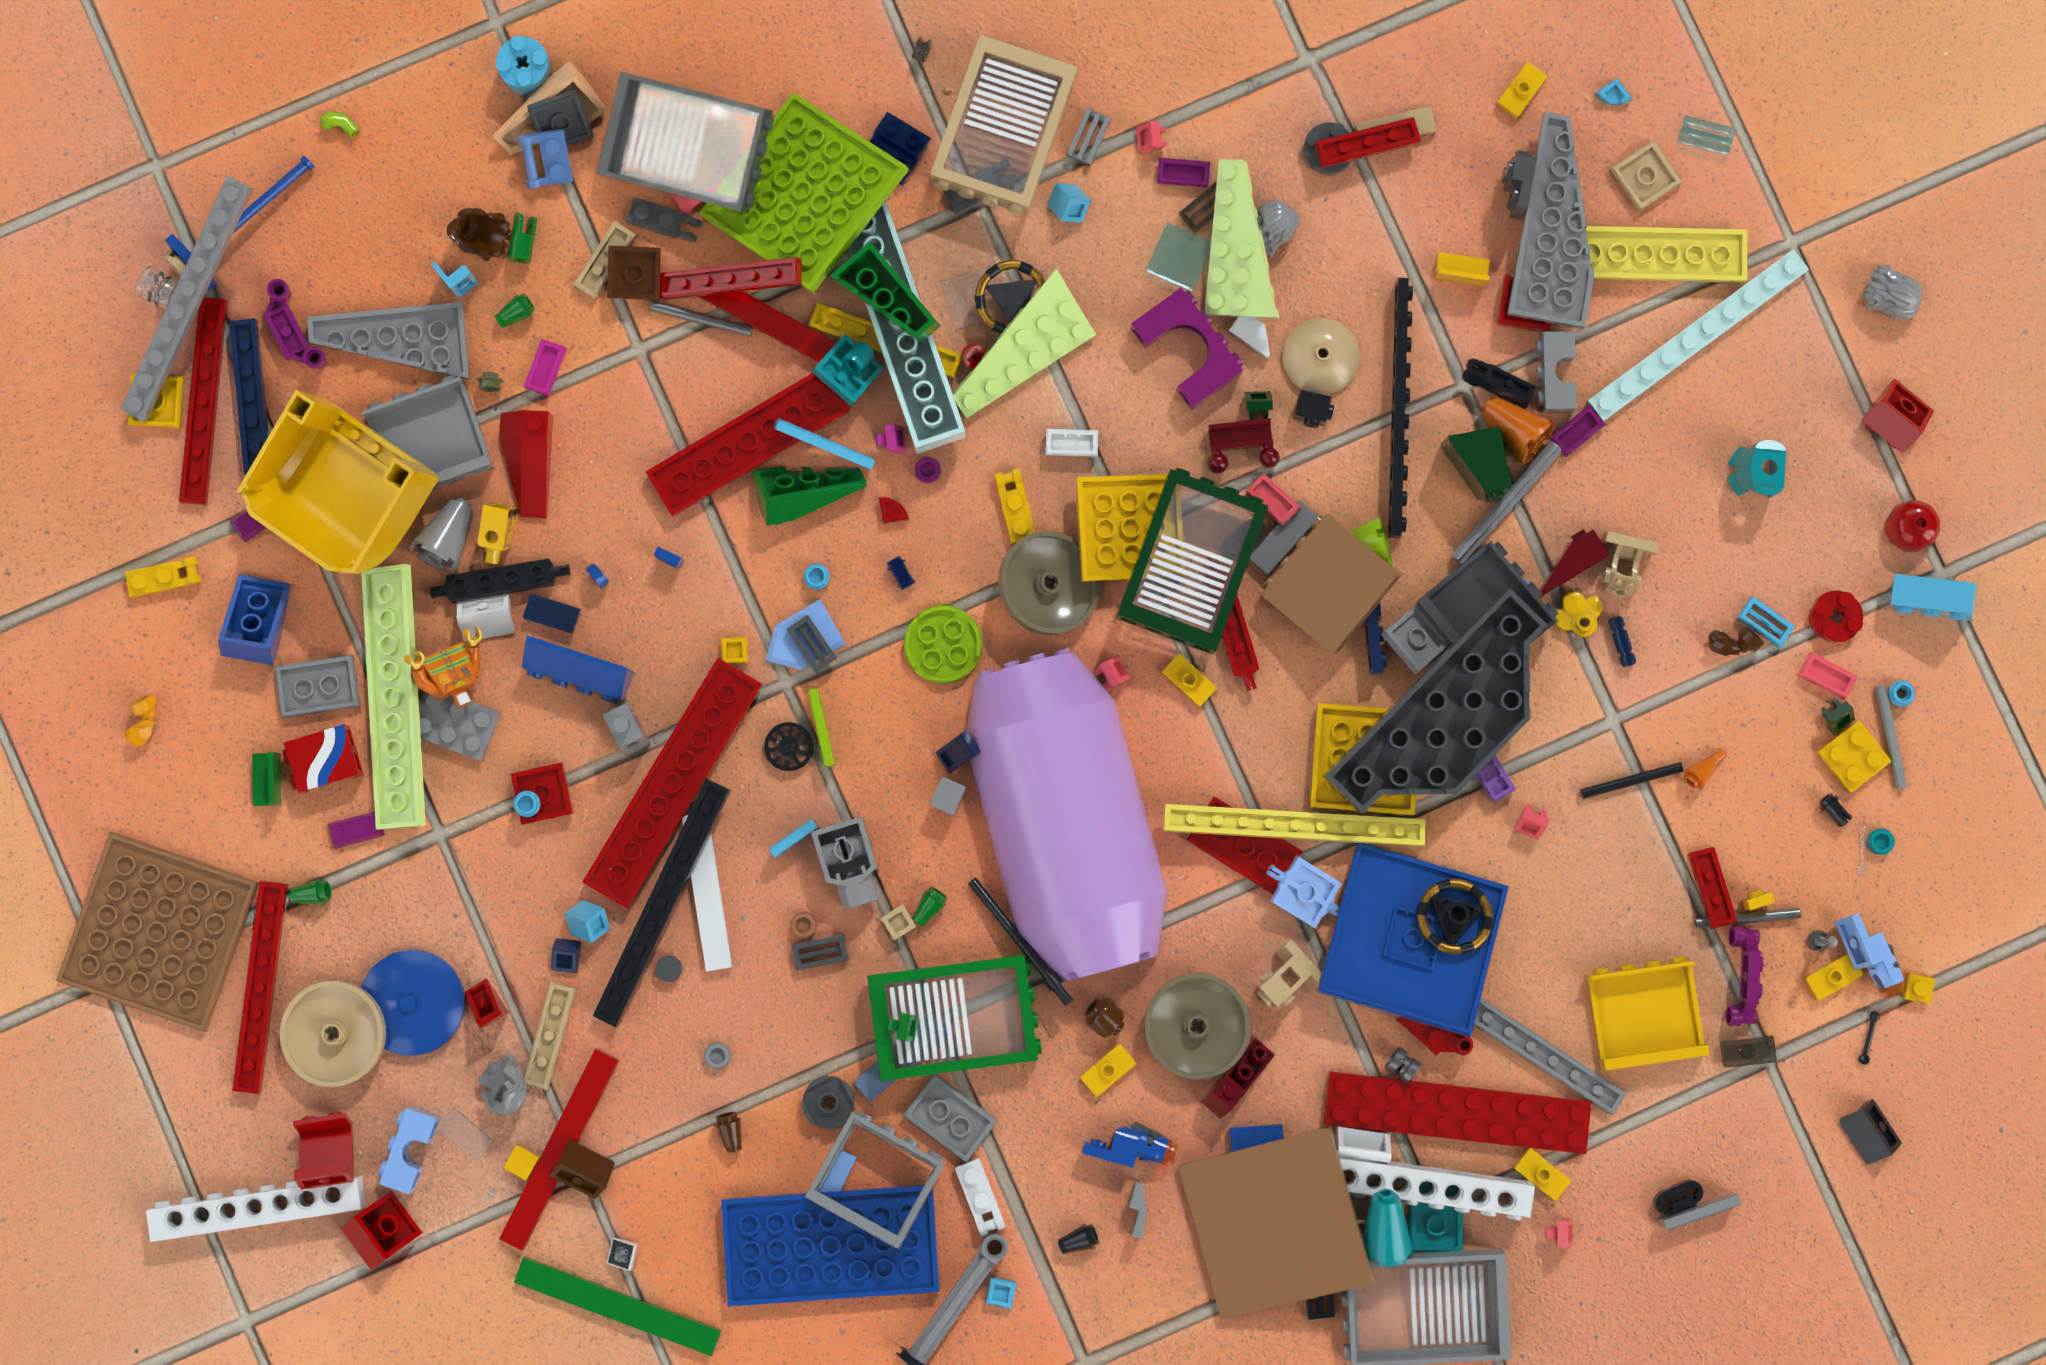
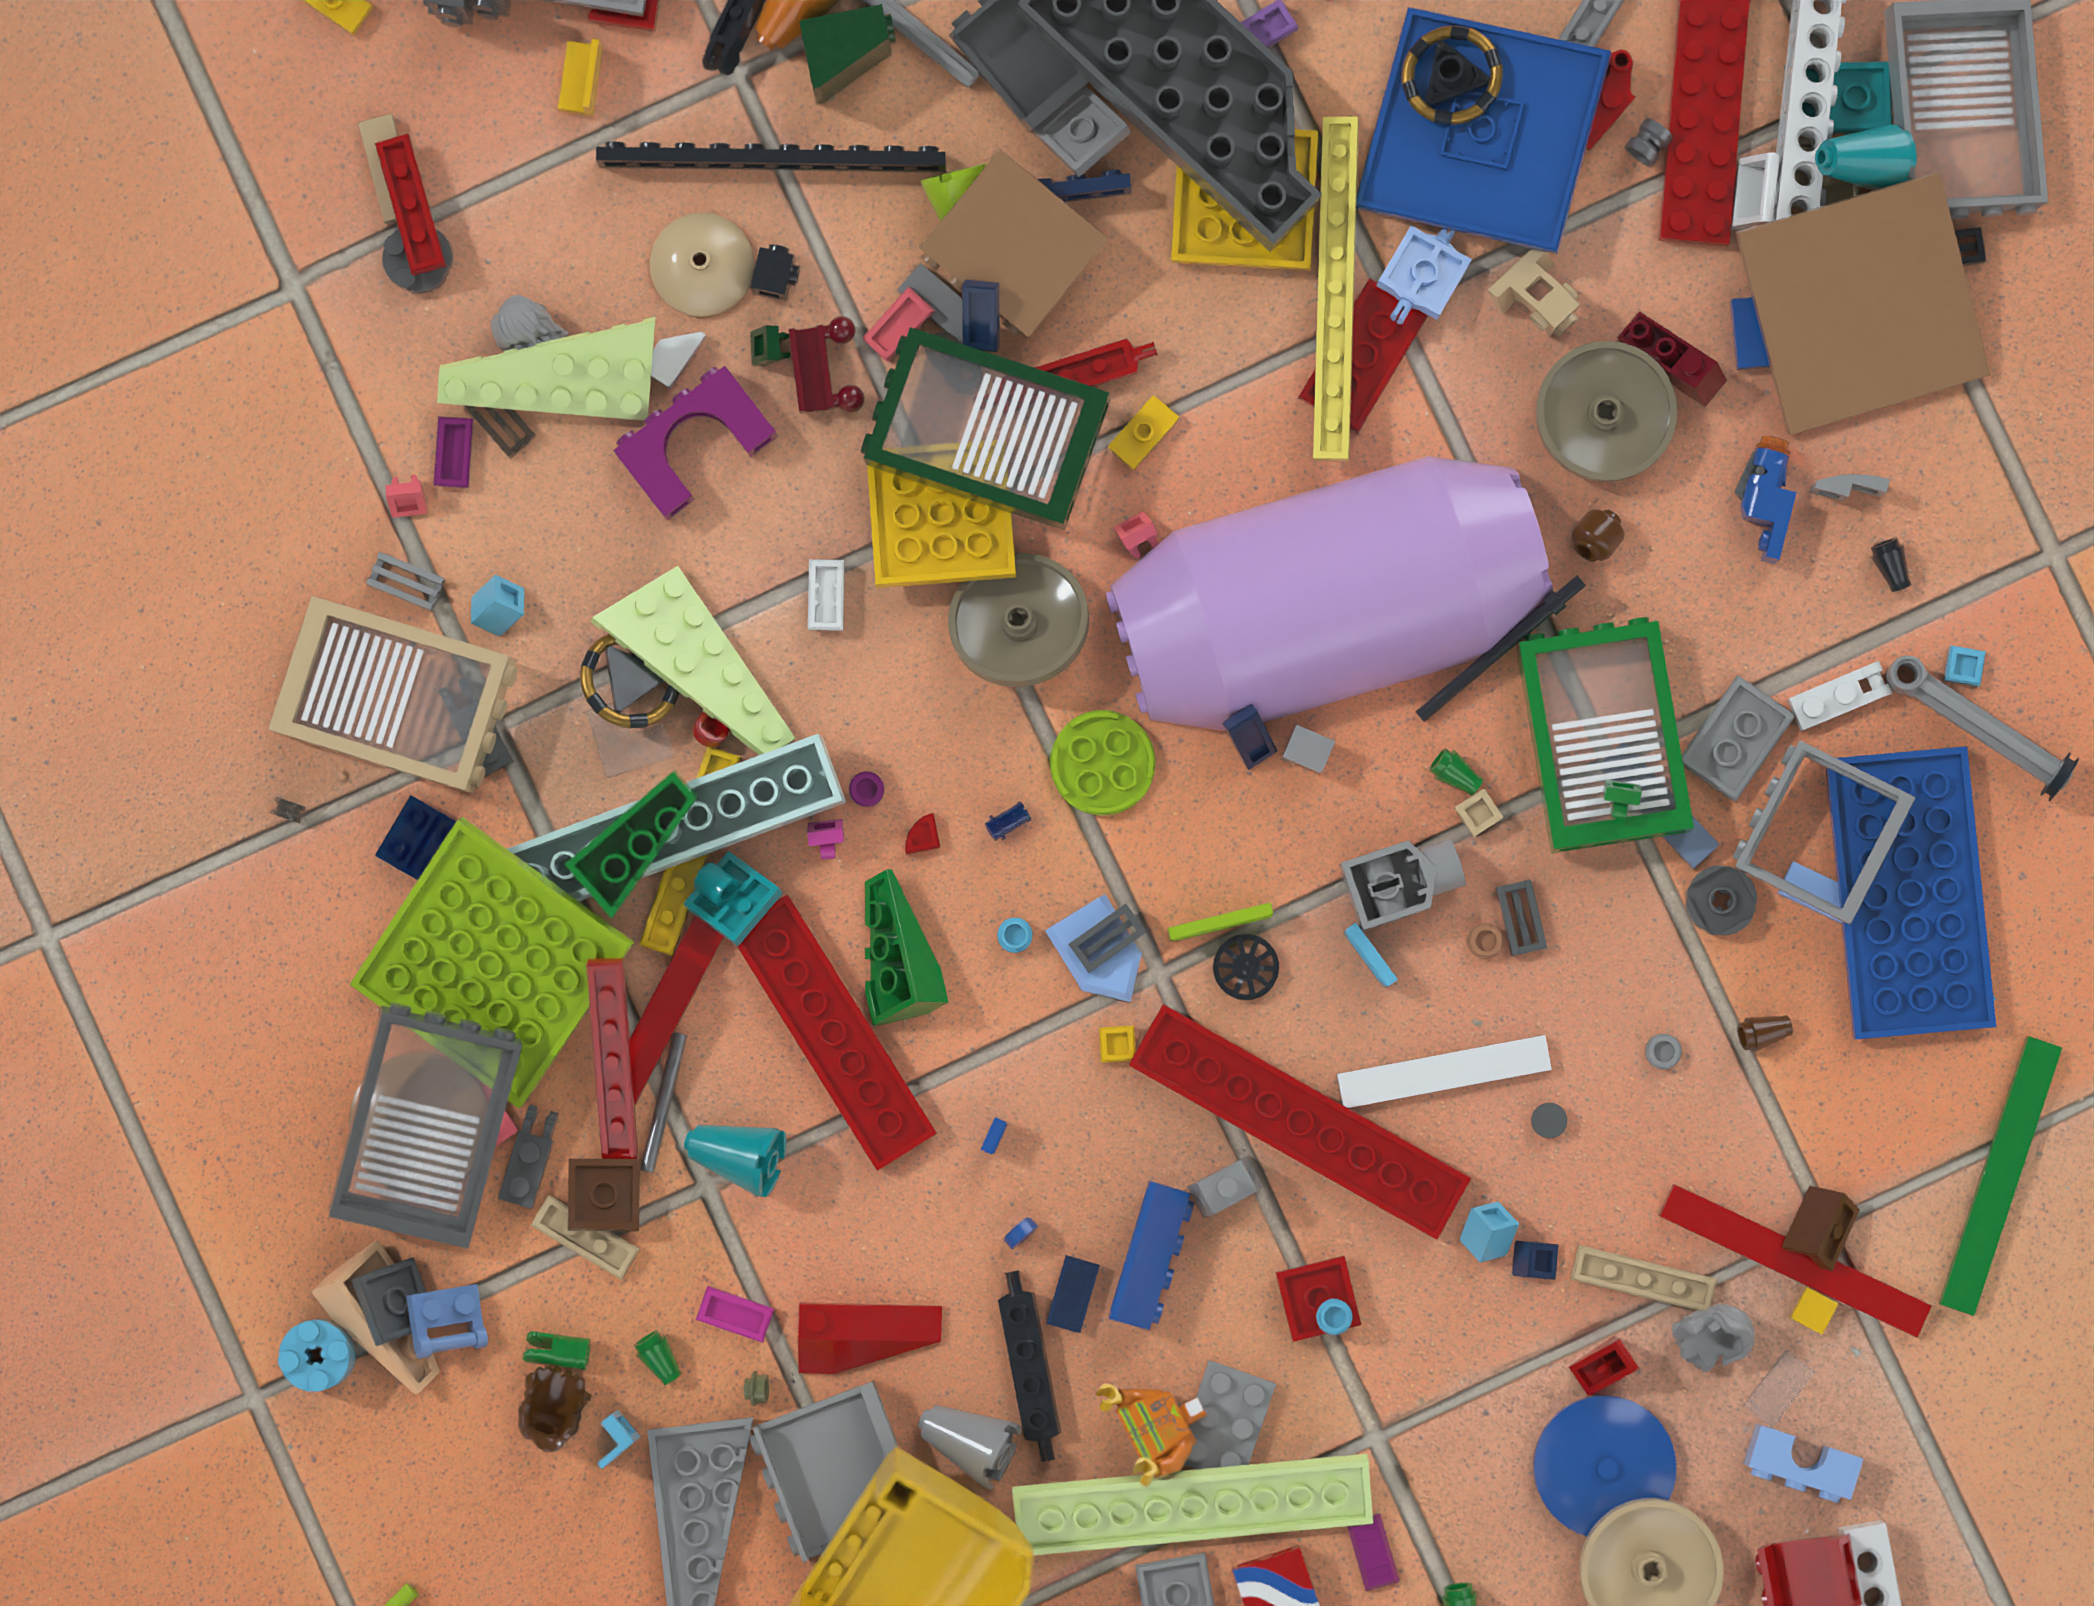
camera: 85 degrees left, 0 degrees up
(381, 1230) = (1912, 1496): red slope -> none
(488, 614) = (1075, 1381): white panel -> none
(496, 519) = (948, 1370): yellow torso -> none
(622, 1253) = (1931, 1171): slope -> none
(659, 371) = (739, 1154): none -> teal cone
(661, 903) = (1462, 1130): black plate -> none
(824, 443) = (835, 927): medium azure tile -> none
(1015, 505) = (913, 670): yellow plate -> none
(1108, 1070) = (1666, 530): yellow plate -> none
(1179, 256) = (568, 455): clear light blue tile -> none
(1276, 558) = (980, 315): none -> dark blue tile

